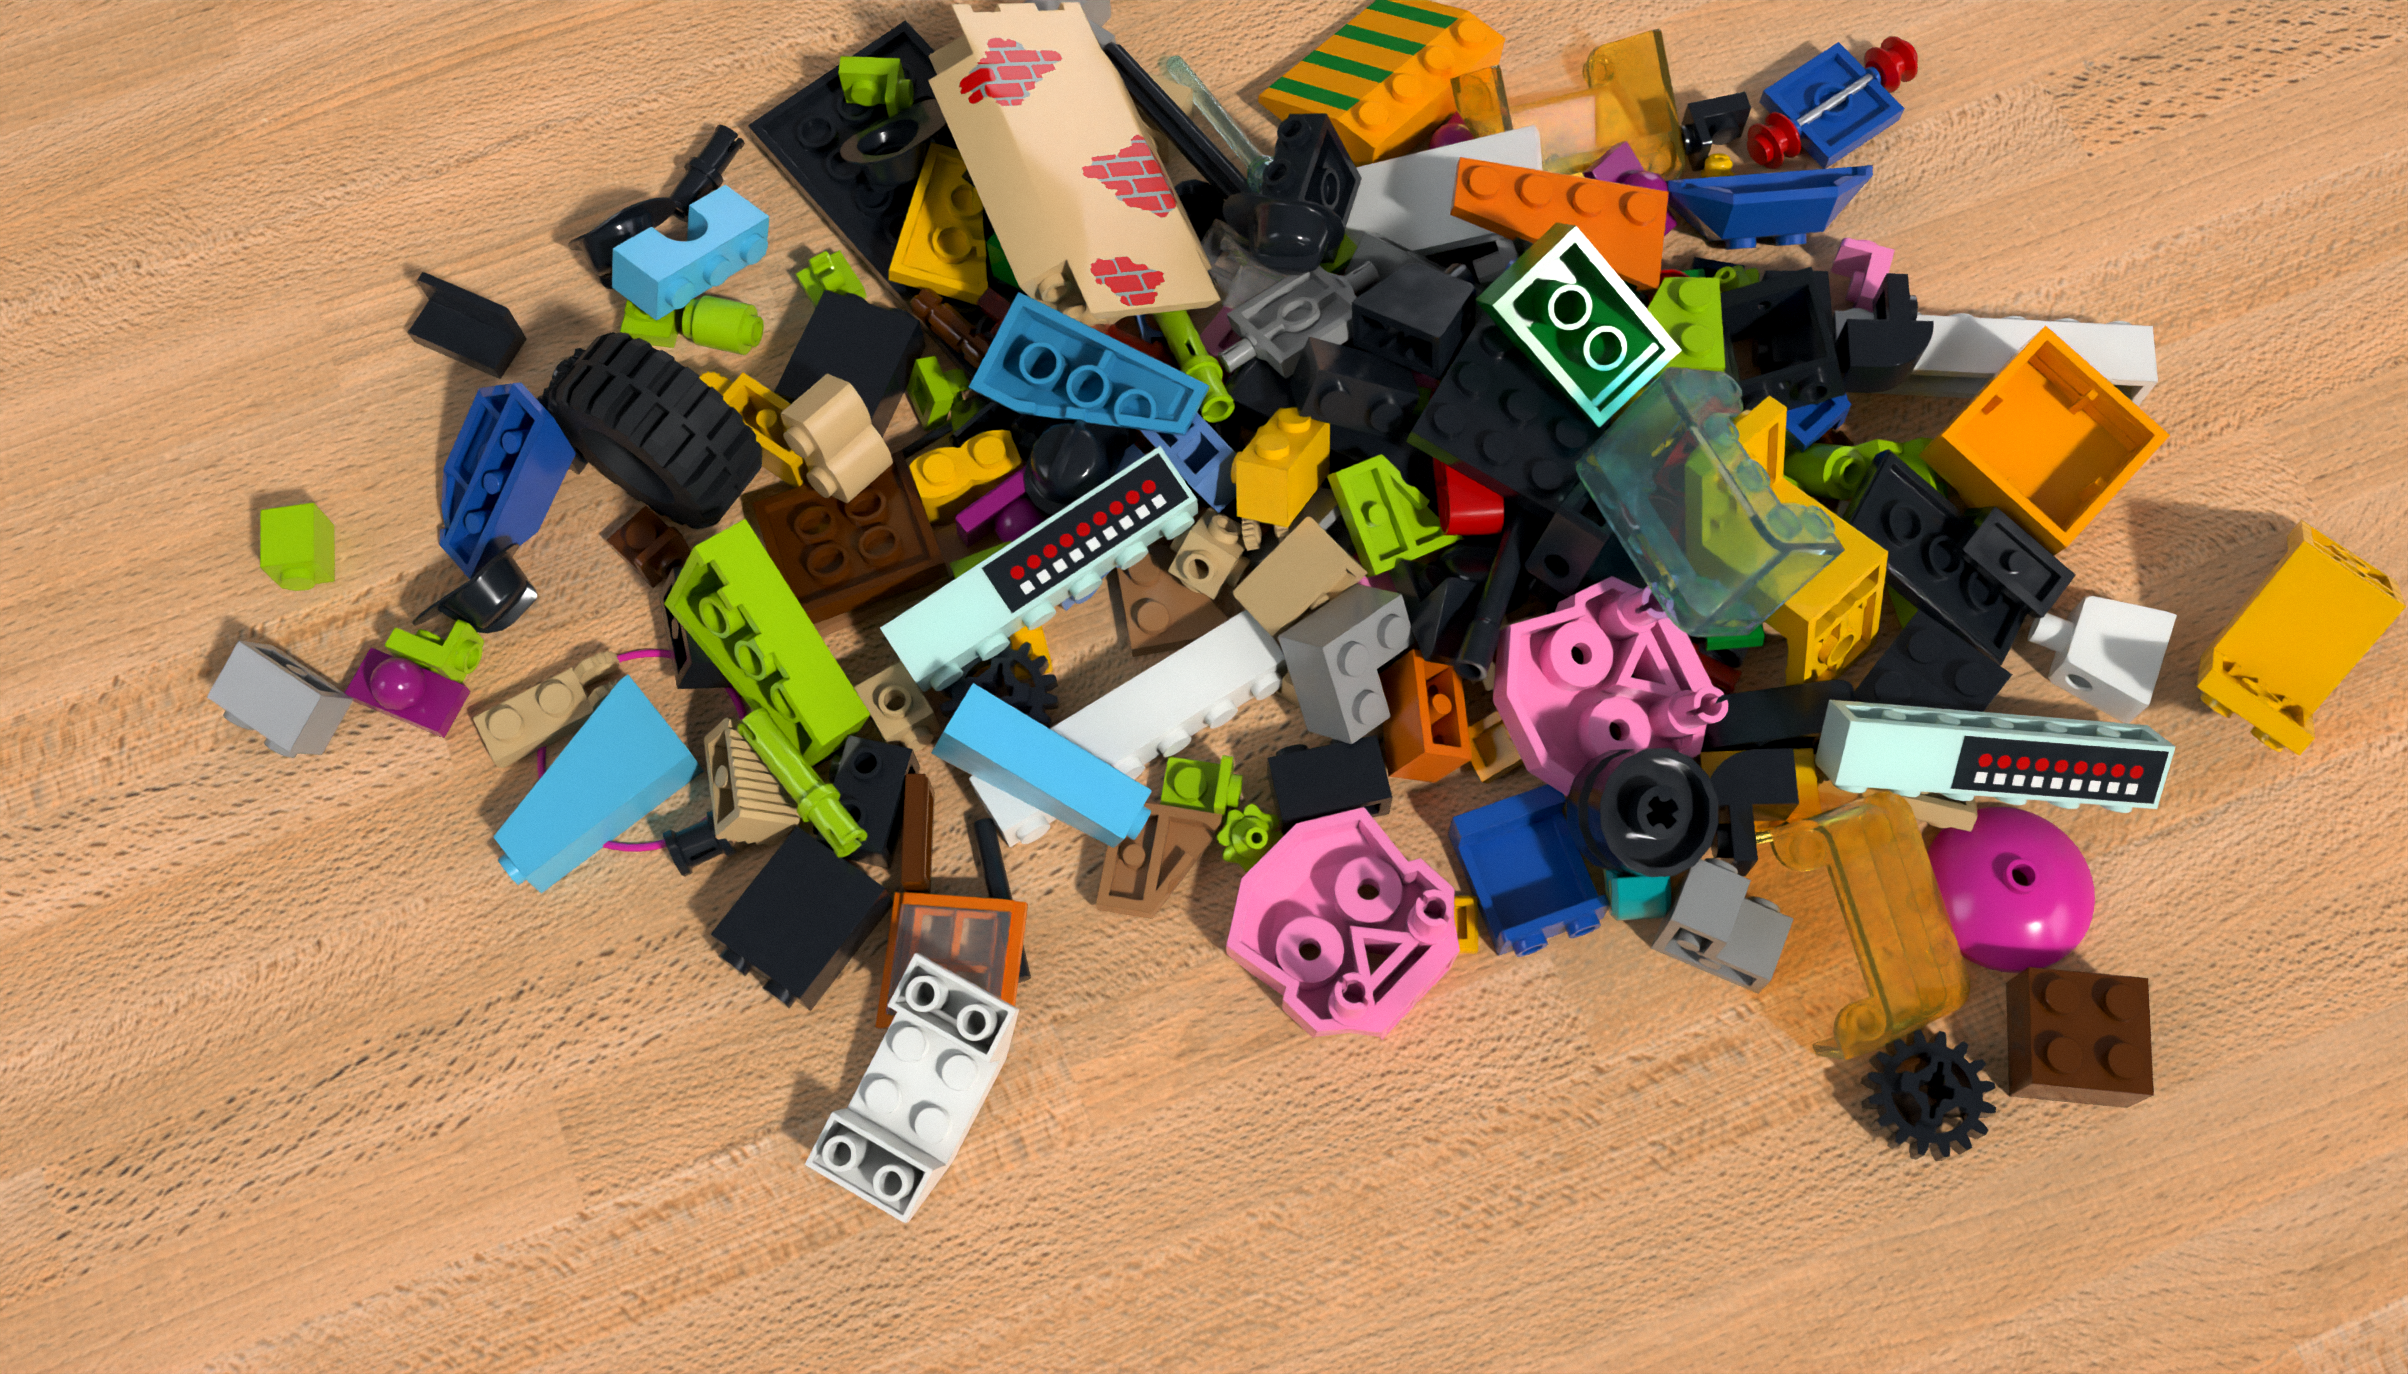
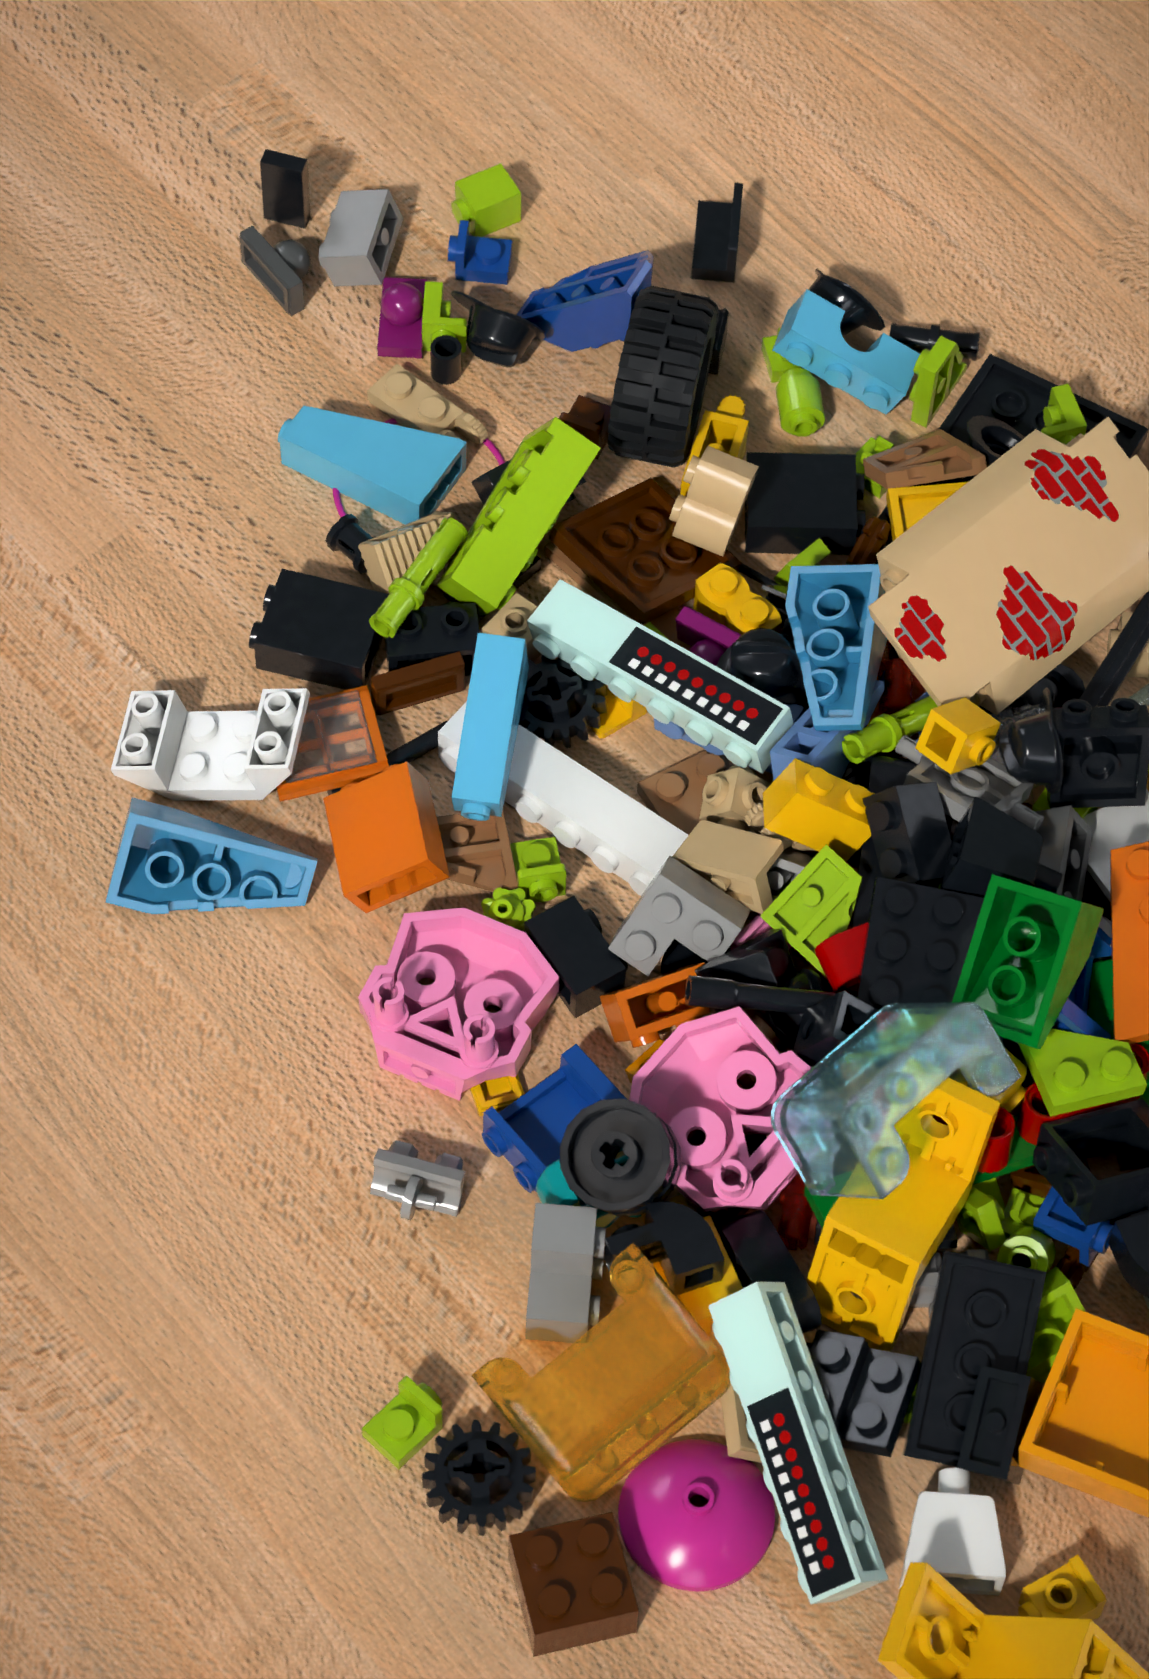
camera: 65 degrees right, 10 degrees down
(170, 758) = (285, 188): none -> black tile
(271, 807) = (277, 267): none -> dark grey tile
(367, 581) = (479, 257): none -> blue bracket
(487, 651) = (445, 359): none -> black hinge
(763, 182) = (937, 376): none -> lime wing
(869, 223) = (923, 461): none -> medium nougat wing
(1049, 1174) = (190, 863): none -> dark azure wedge
(1113, 934) = (386, 837): none -> orange brick
(1254, 298) = (958, 736): none -> yellow brick
(1560, 1048) = (418, 1182): none -> light grey hips
(1836, 1153) = (405, 1422): none -> lime bracket
(2191, 578) = (1076, 1585): none -> yellow brick

